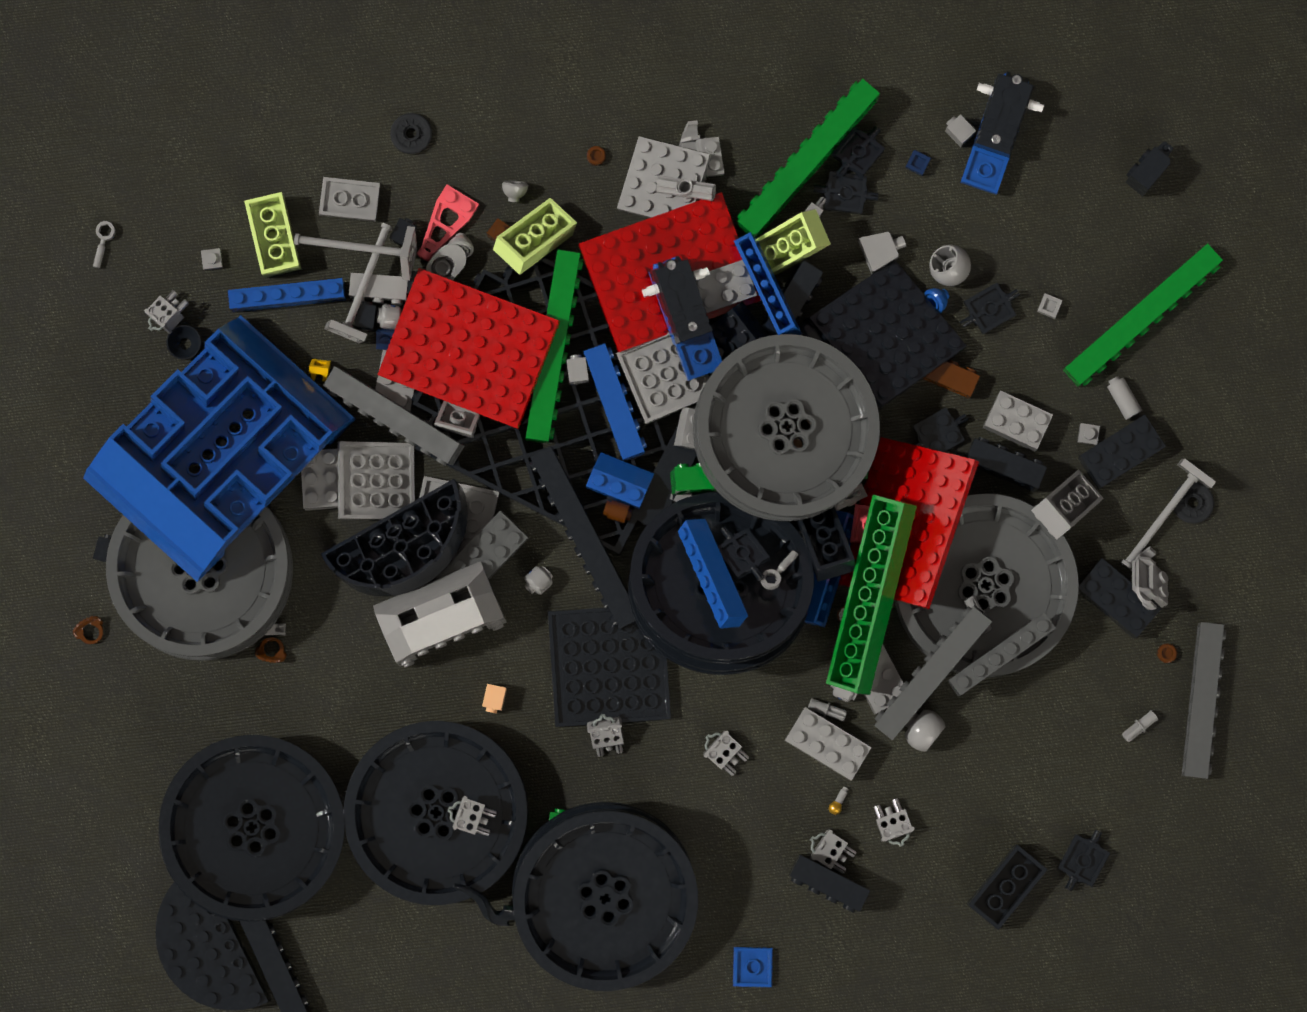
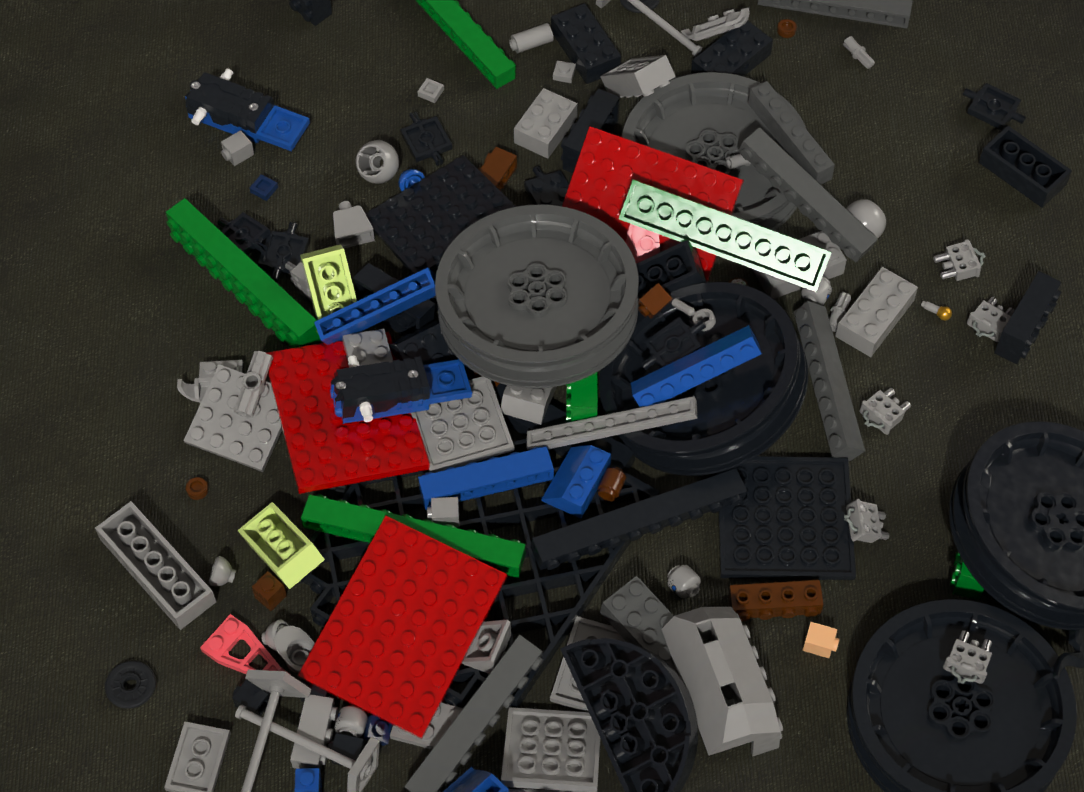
camera: 85 degrees left, 25 degrees down
(514, 134) = (155, 565): none -> light grey brick
(528, 659) = (776, 599): none -> reddish brown brick
(664, 505) = (613, 424): none -> light grey tile
(748, 700) = (829, 381): none -> dark grey brick
(789, 533) = (654, 301): none -> reddish brown brick

